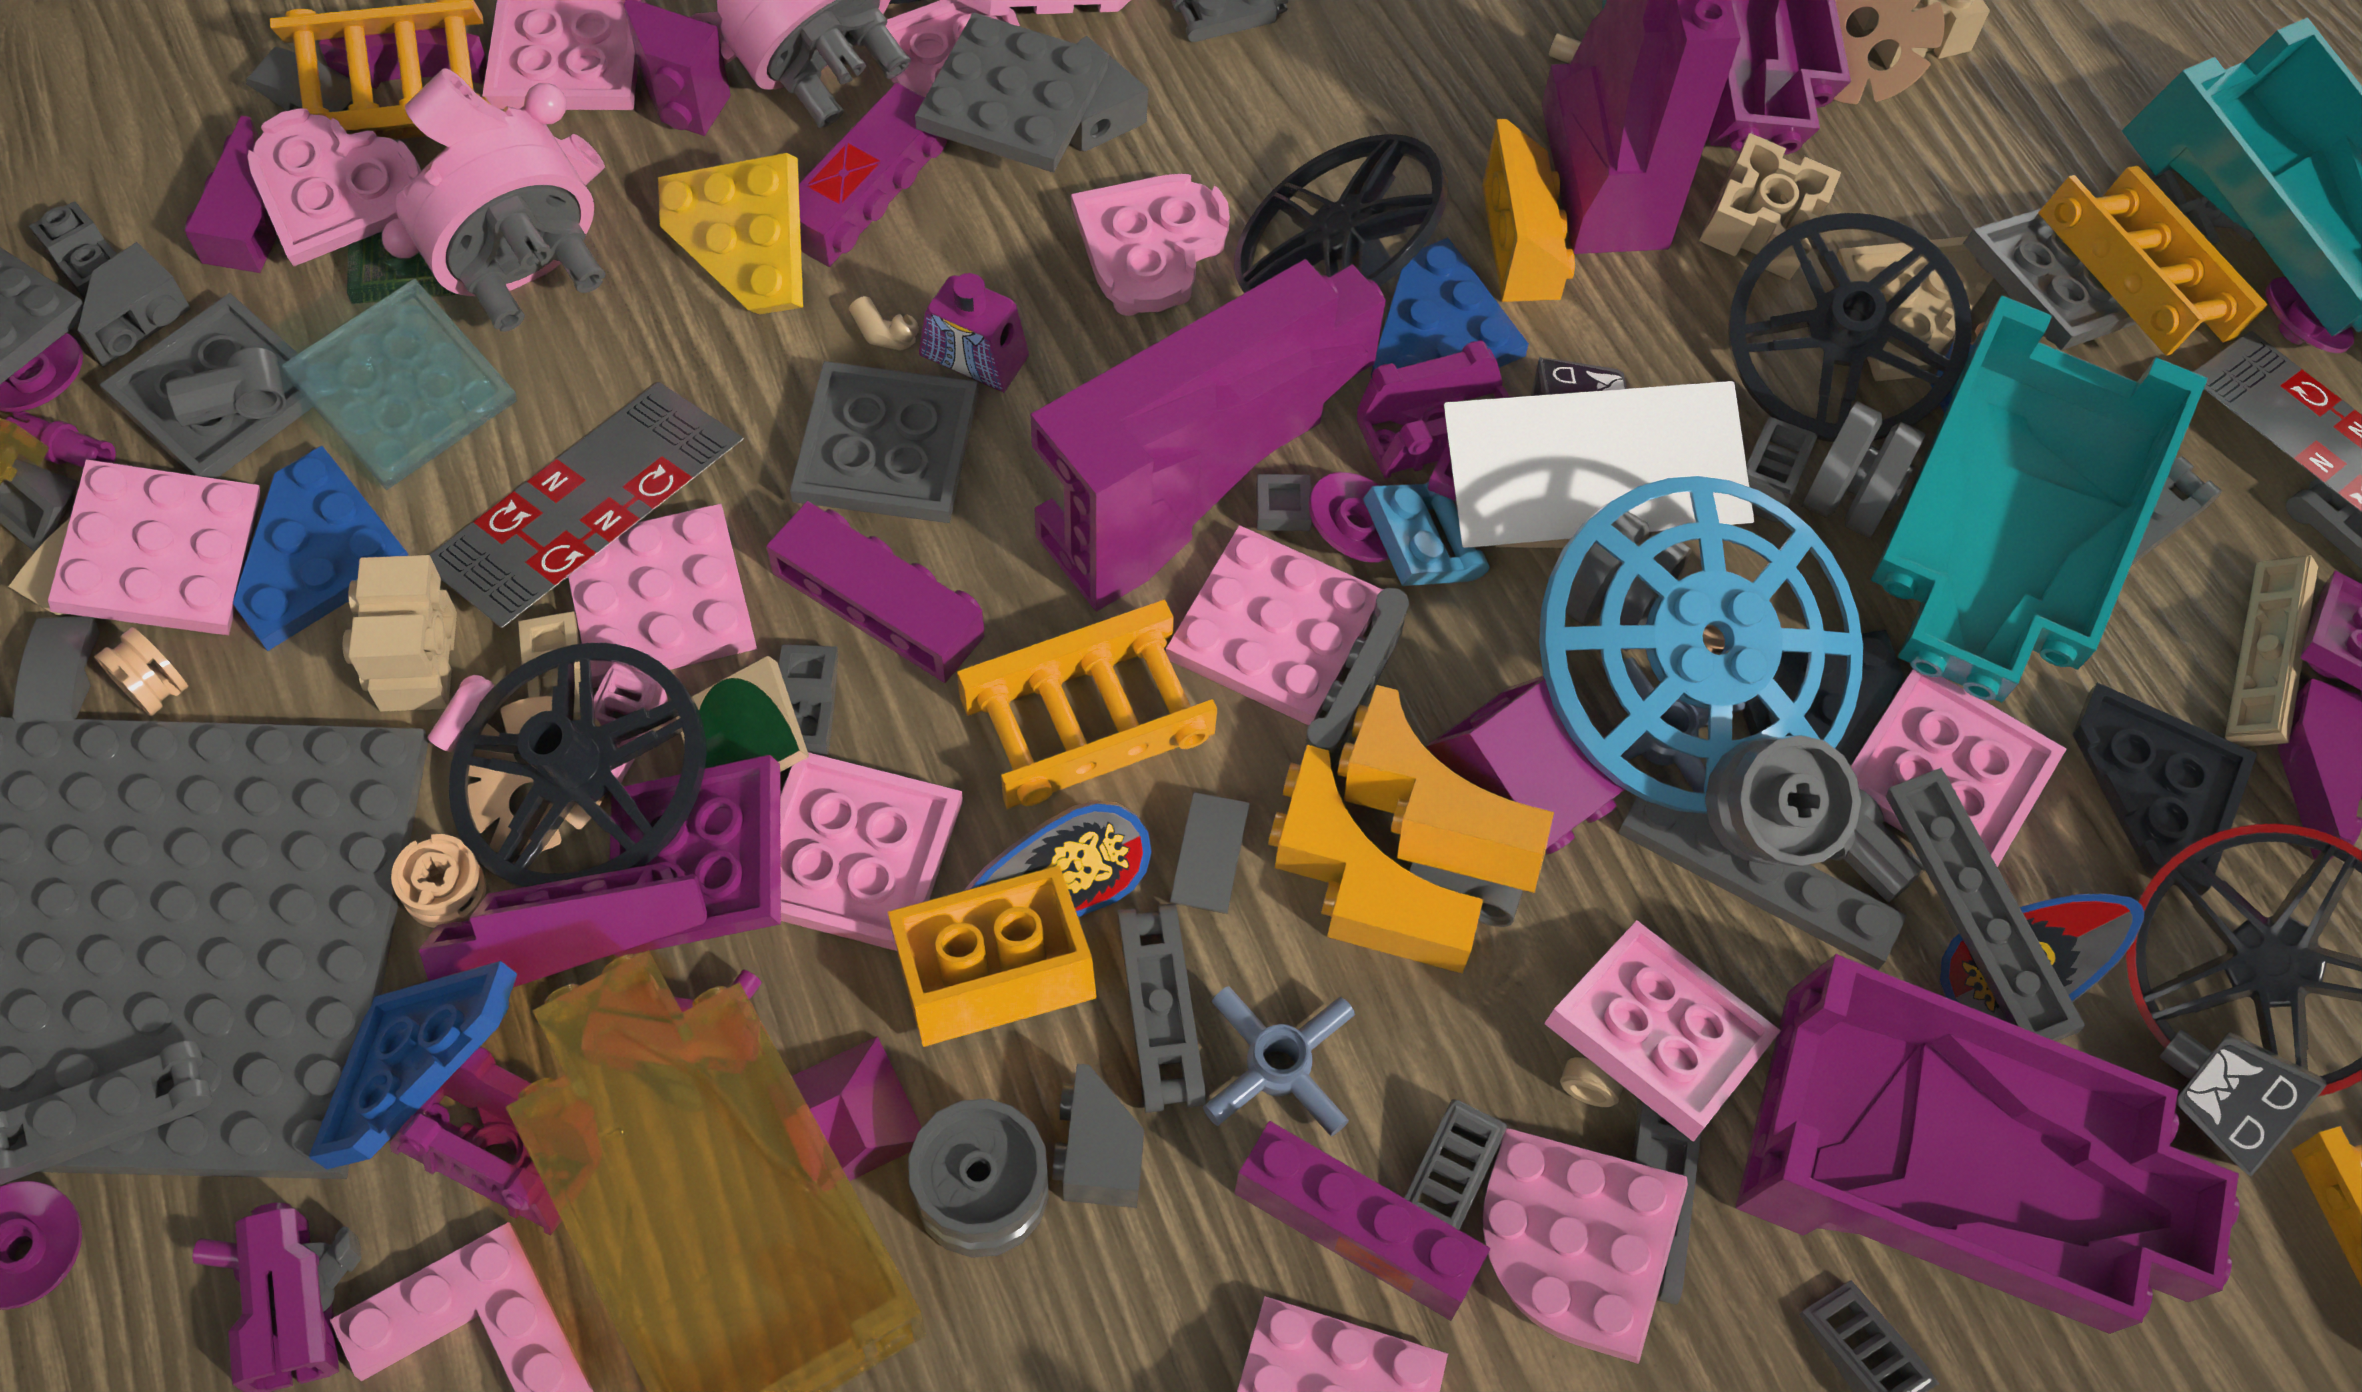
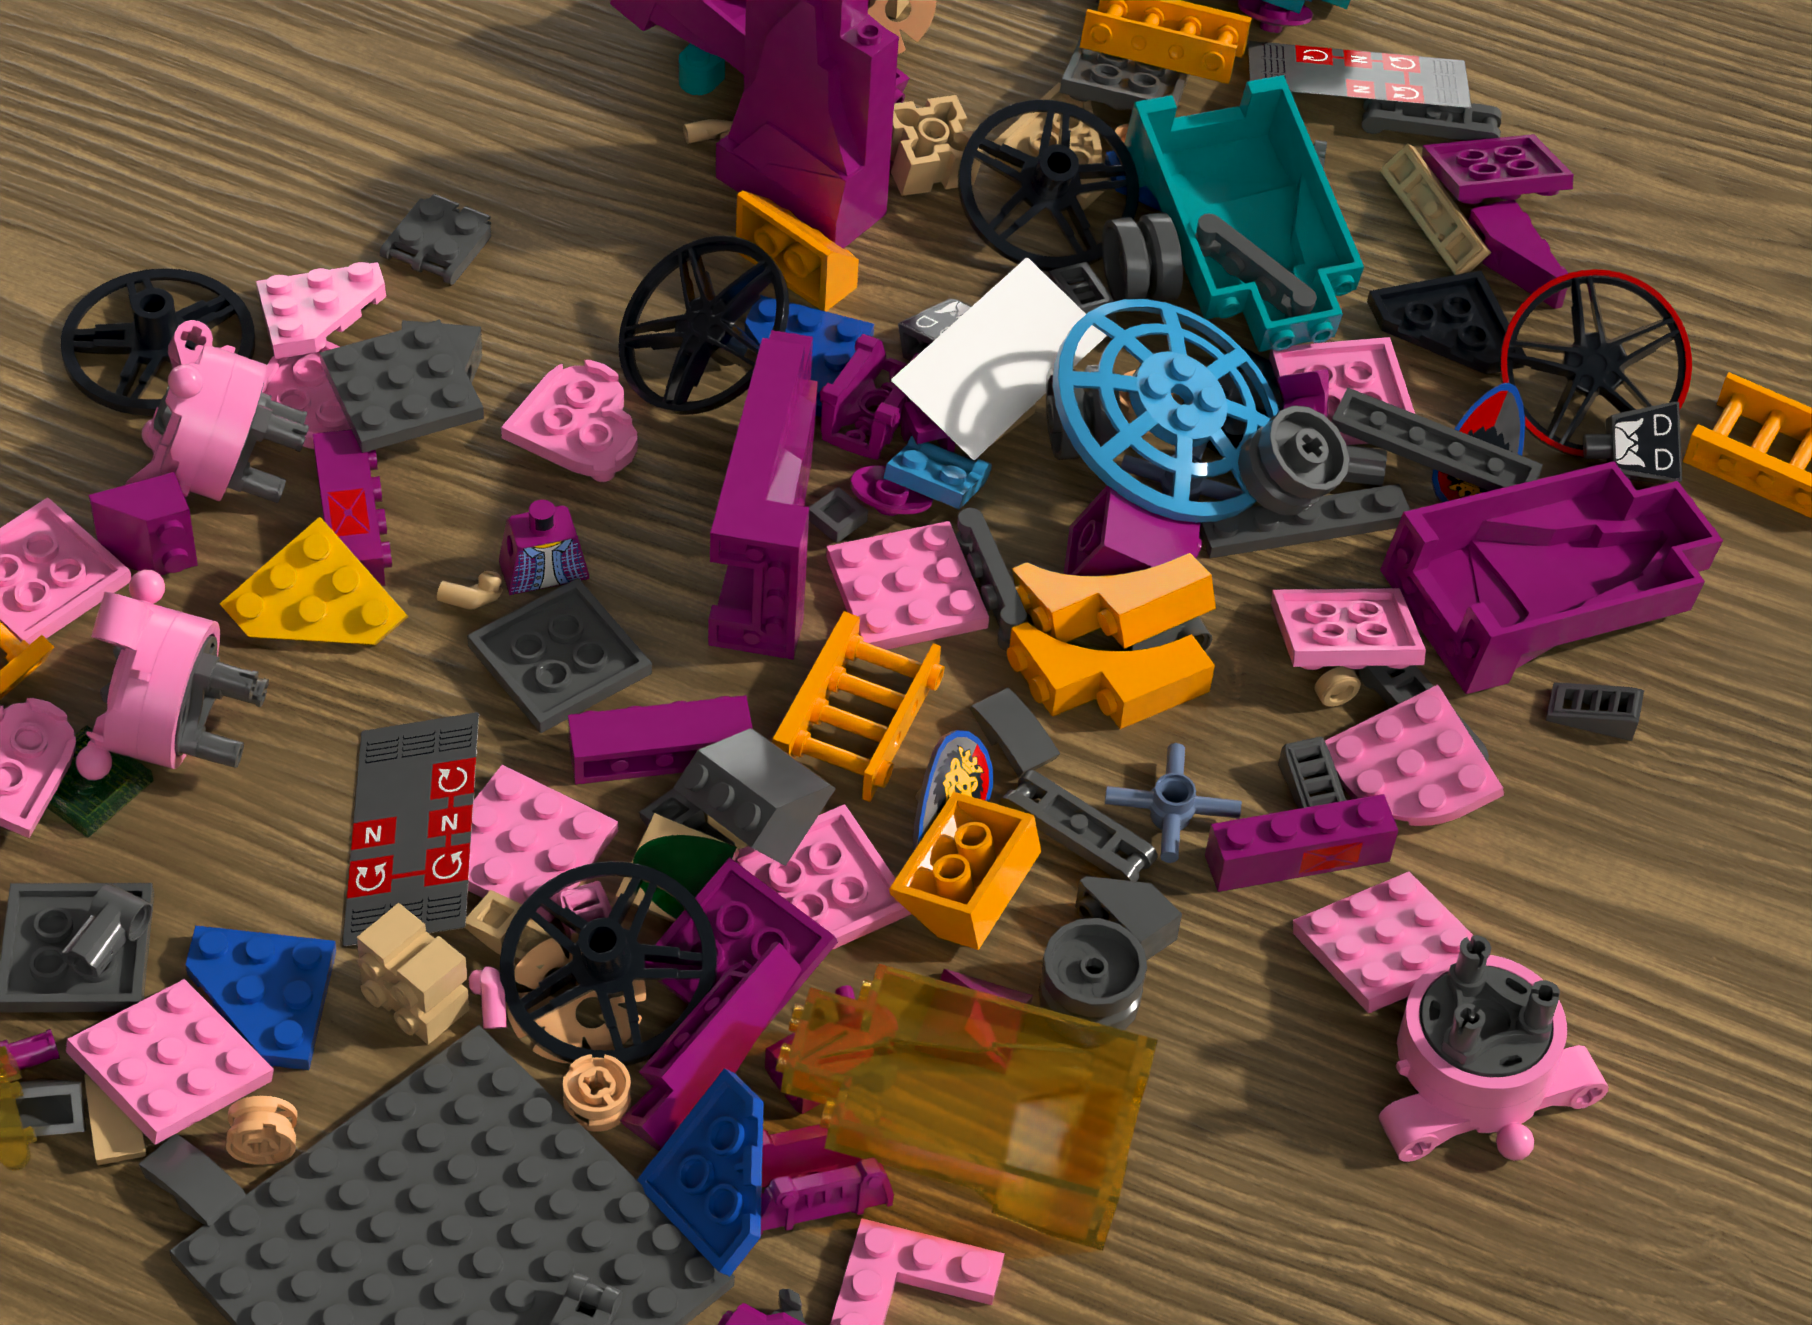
camera: 45 degrees left, 10 degrees down
(399, 383) = (209, 847): clear light blue plate -> none
(863, 712) = (756, 792): none -> dark grey slope
(1887, 744) = (1306, 390): none -> magenta slope
(1964, 545) = (1251, 264): none -> dark grey plate

